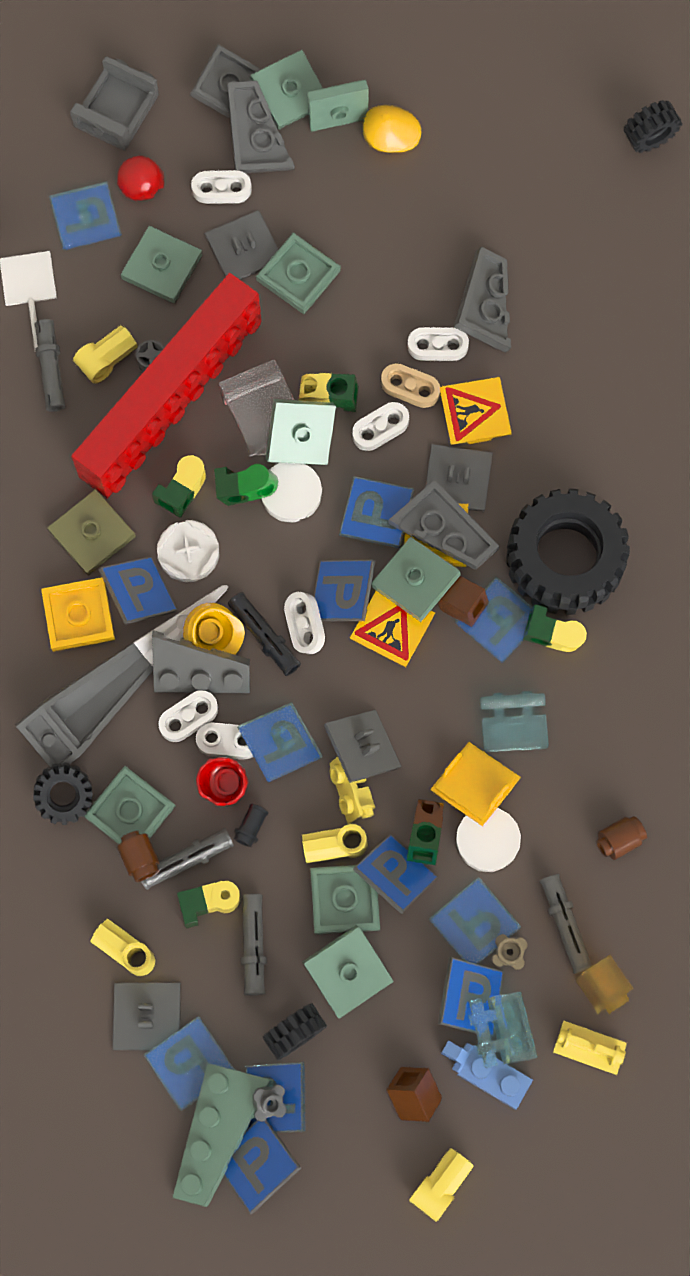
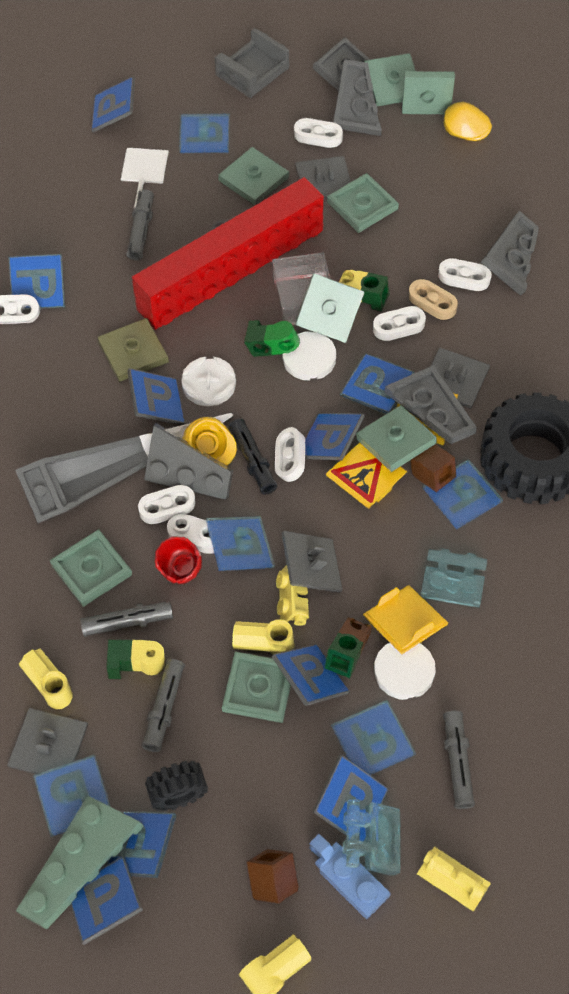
camera: 15 degrees right, 15 degrees down
(62, 813) = (20, 531): black tyre -> none
(78, 614) = (99, 406): yellow plate -> none
(99, 358) = (181, 227): light yellow piece -> none
(138, 856) = (84, 600): reddish brown brick -> none
(140, 178) = (255, 114): red hair -> none
(183, 486) = (218, 331): leg -> none
(250, 825) = (192, 605): black pin -> none
(262, 1096) = (126, 833): dark grey plate -> none
(347, 971) = (242, 748): sand green plate -> none
(475, 411) = (483, 329): yellow piece -> none
(502, 958) = (399, 762): dark tan plate -> none
(552, 632) = (508, 511): leg -> none
(605, 985) = (481, 818): clear yellow brick -> none
(621, 837) = (529, 696): reddish brown brick -> none

